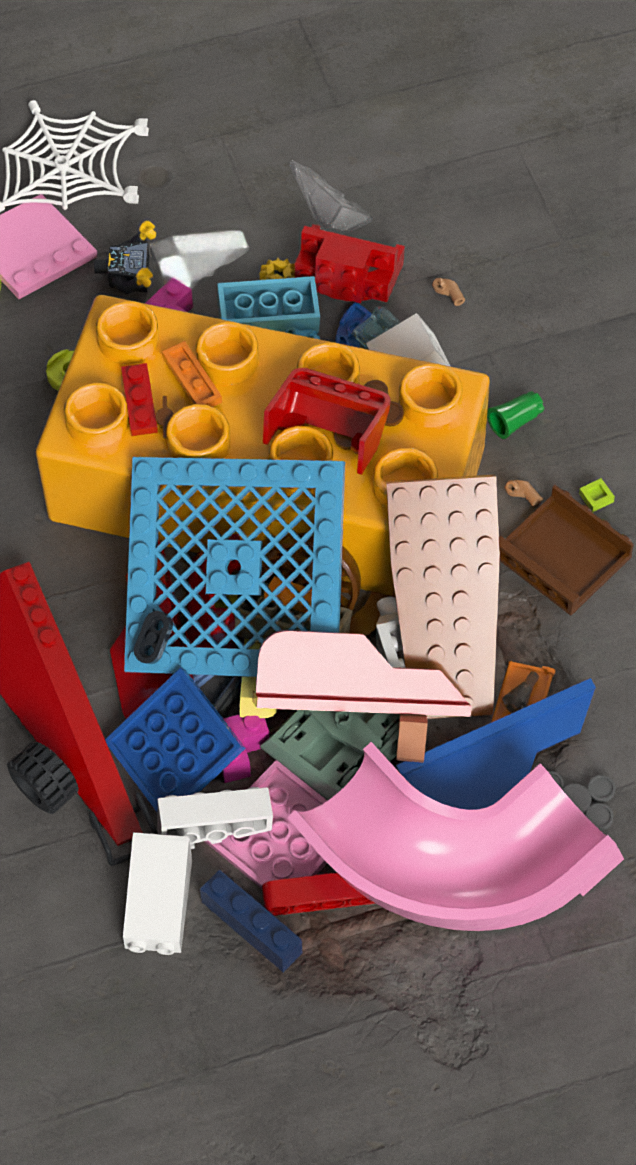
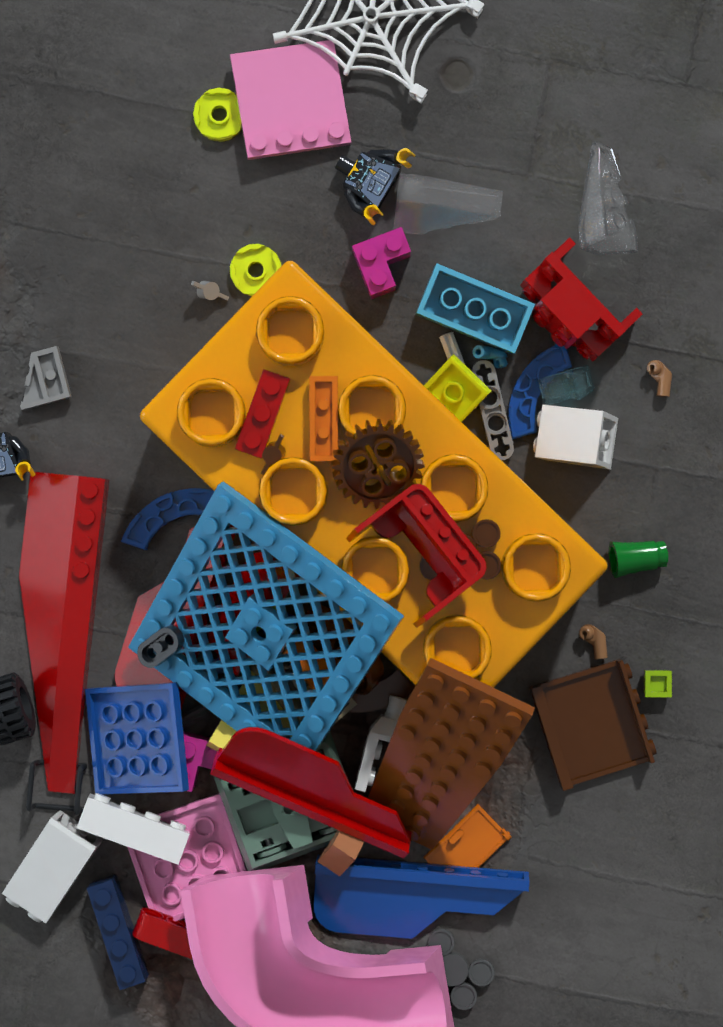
camera: 30 degrees right, 30 degrees up
(38, 399) = (208, 290): none -> light grey piece
(94, 575) = (162, 511): none -> blue tile
(242, 396) = (401, 452): none -> reddish brown gear
(267, 270) = (502, 275): yellow gear -> none
(520, 695) = (462, 852): clear smoke cone -> none

